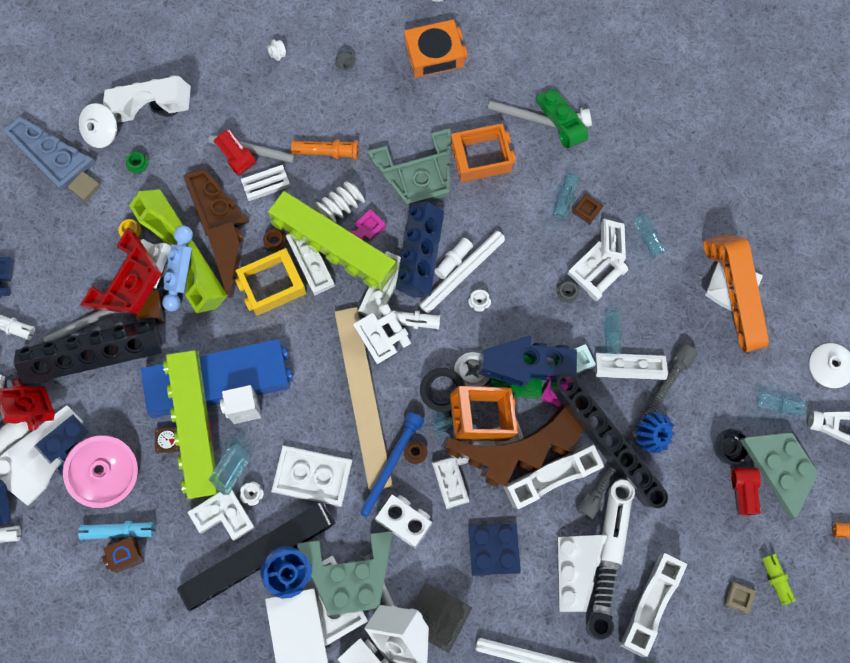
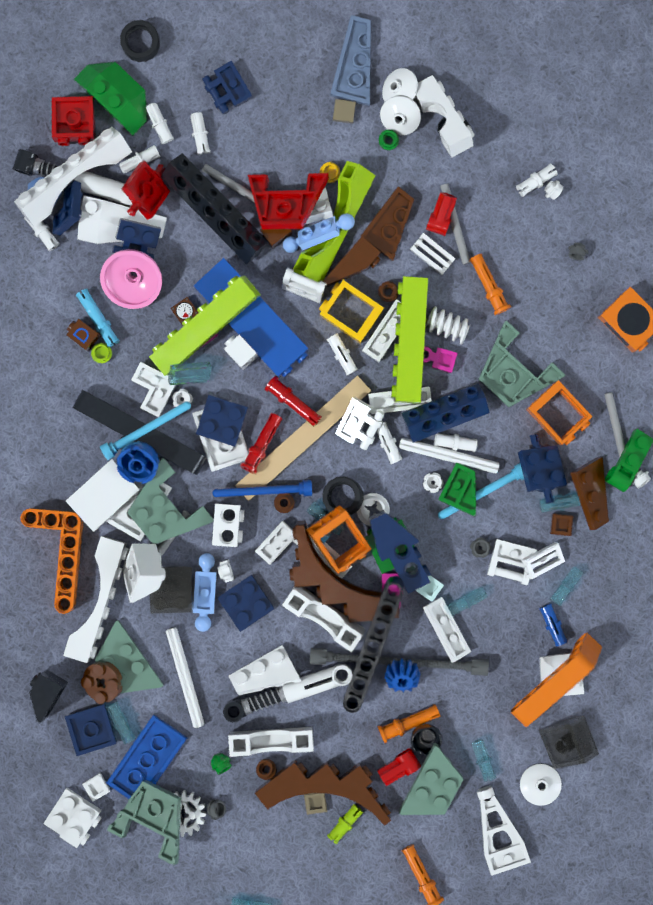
camera: 65 degrees right, 15 degrees up
(113, 129) = (402, 107): none -> white dish
(153, 548) = (101, 353): none -> lime plate
(217, 310) = (303, 286): none -> white plate
(254, 593) = (109, 450): none -> medium azure piece
(258, 59) = (536, 180): none -> white pin
(297, 465) = (221, 420): none -> dark blue plate
(305, 314) = (334, 342): none -> white pin
(311, 388) = (286, 395): none -> red pin
(348, 447) = (257, 452): none -> red pin
(449, 549) = (225, 571): none -> white plate
(459, 585) = (204, 592): none -> light blue plate
(502, 277) = (461, 490): none -> green wing
(515, 218) = (515, 474): none -> medium azure piece
(525, 194) = (542, 468): none -> dark blue plate
(572, 164) = (591, 490): none -> reddish brown wing
(671, 629) = (261, 766): none -> reddish brown plate
(680, 266) = (559, 637): none -> blue pin
(705, 467) = (399, 727): none -> orange pin
(708, 606) = (325, 779): none -> reddish brown arch
(804, 314) = (569, 742): none -> clear smoke slope

